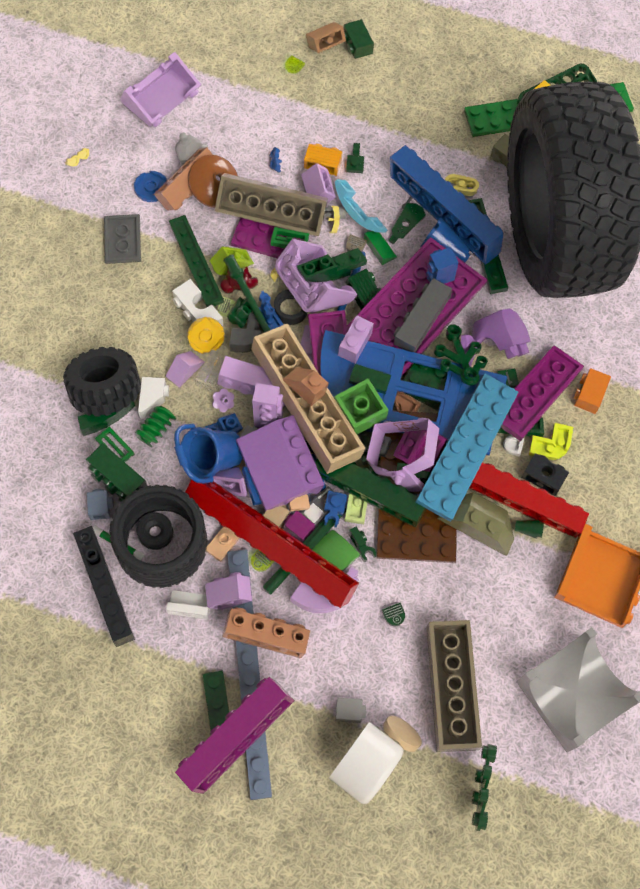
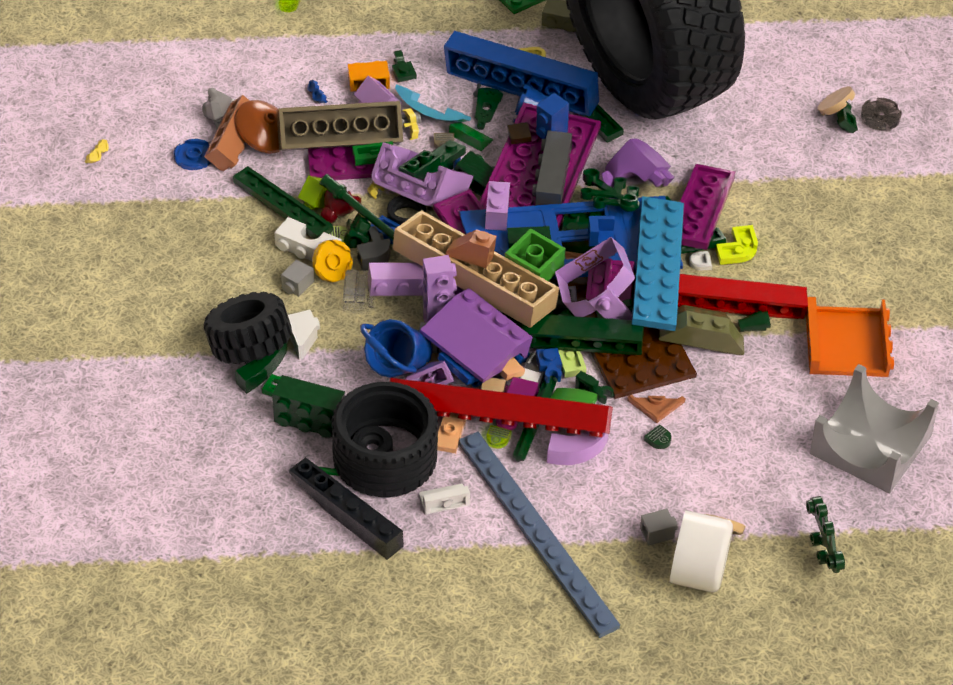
camera: 20 degrees left, 20 degrees down
(99, 504) = (300, 442): sand blue brick -> none
(122, 239) = (189, 209): dark grey tile -> none
(154, 424) = (321, 356): green piece -> none
(161, 91) = (159, 64): lavender windscreen -> none
(172, 340) = (297, 278): none -> light grey brick
(184, 367) = (322, 300): lavender slope -> none
(216, 697) = (520, 569): dark green plate -> none
(219, 398) = (379, 312): lavender plant -> none
(228, 591) = (481, 466): lavender brick -> none
(234, 736) = (557, 573): magenta brick -> none
(266, 633) = (539, 488): nougat brick -> none
(268, 310) = (379, 212): blue piece -> none
(407, 581) = (656, 406): none -> nougat tile
(411, 268) = (519, 133): none -> dark brown tile
(433, 396) = (600, 229): none -> blue panel
(453, 686) = (750, 470): dark tan brick -> none
(549, 483) = (746, 268): black brick -> none
(592, 390) = (754, 190): orange brick -> none

